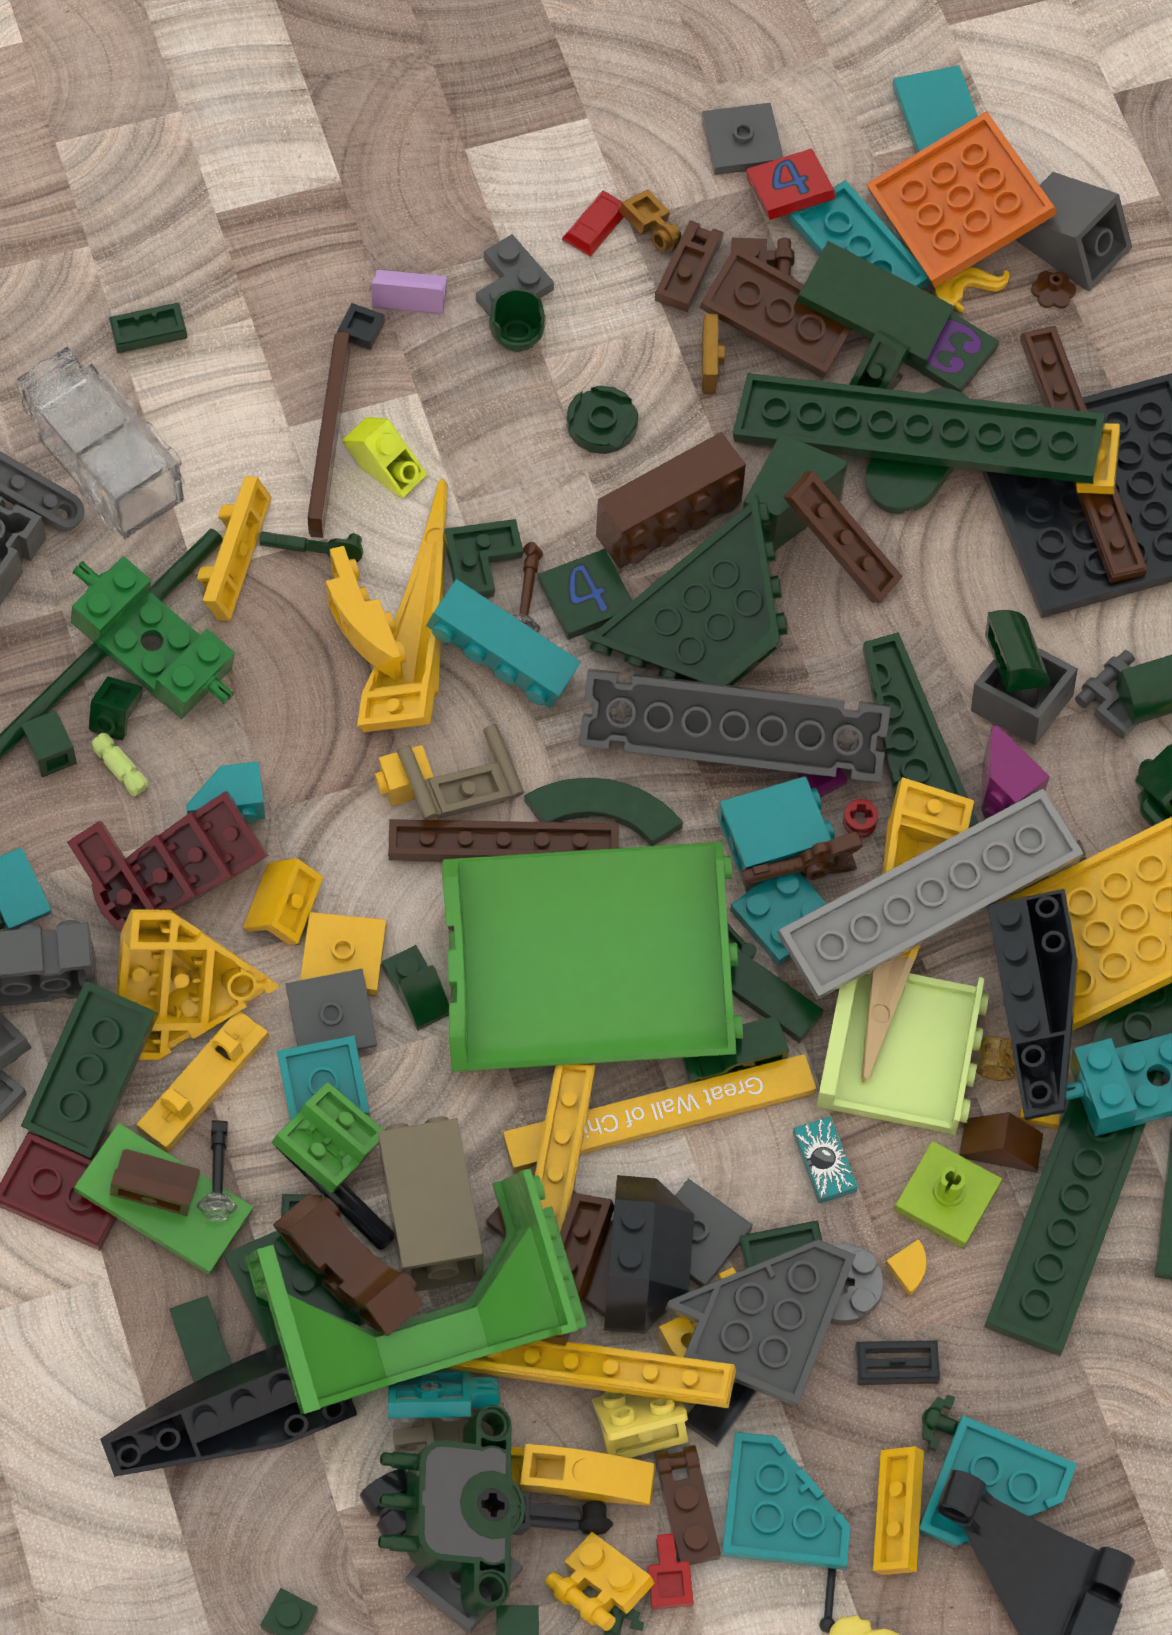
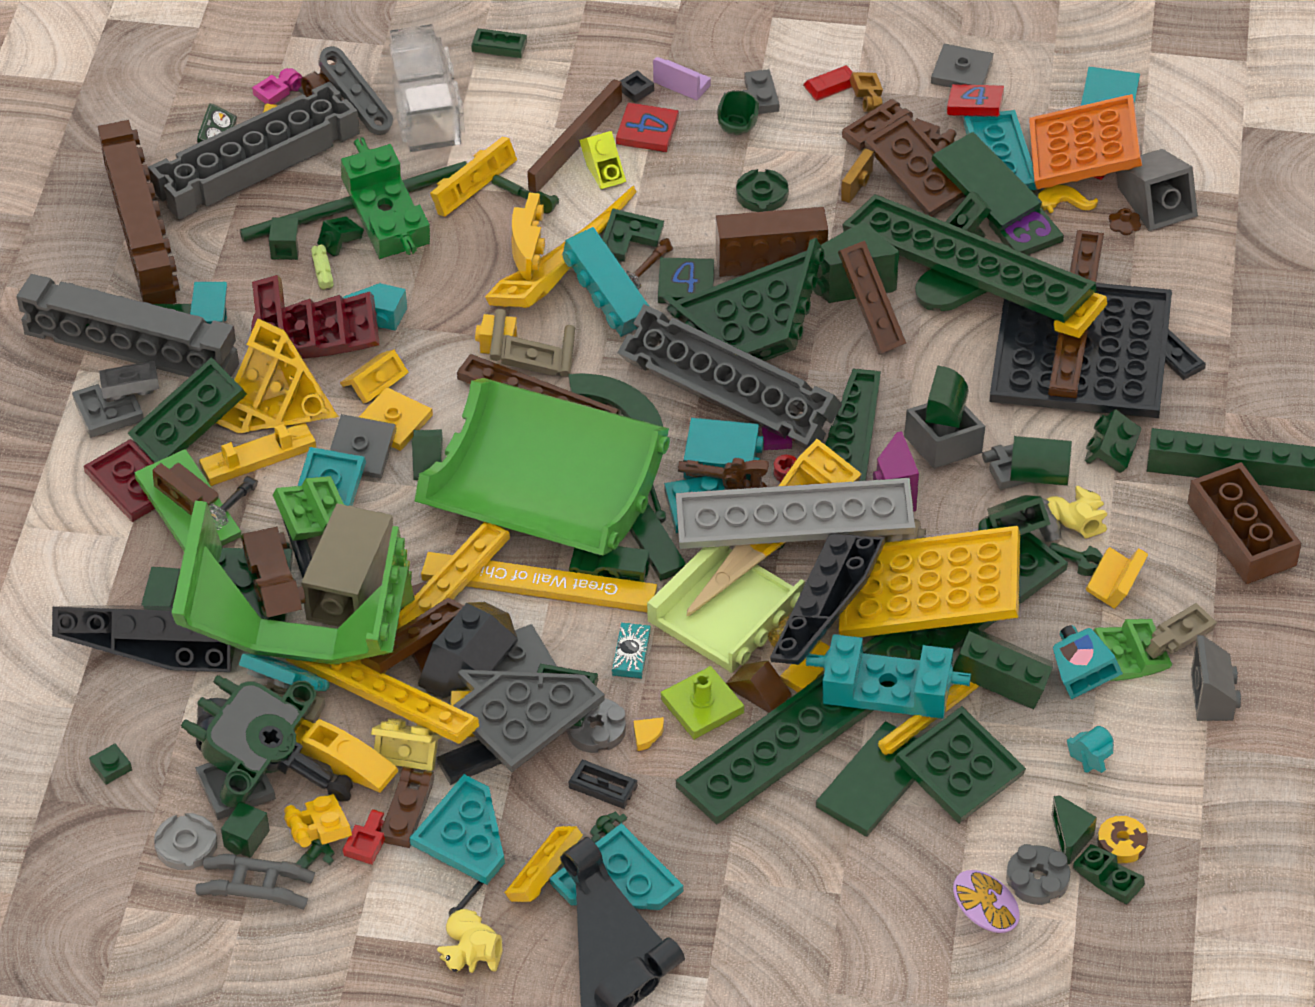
camera: 30 degrees right, 15 degrees down
(407, 381) = (647, 127): none -> red tile

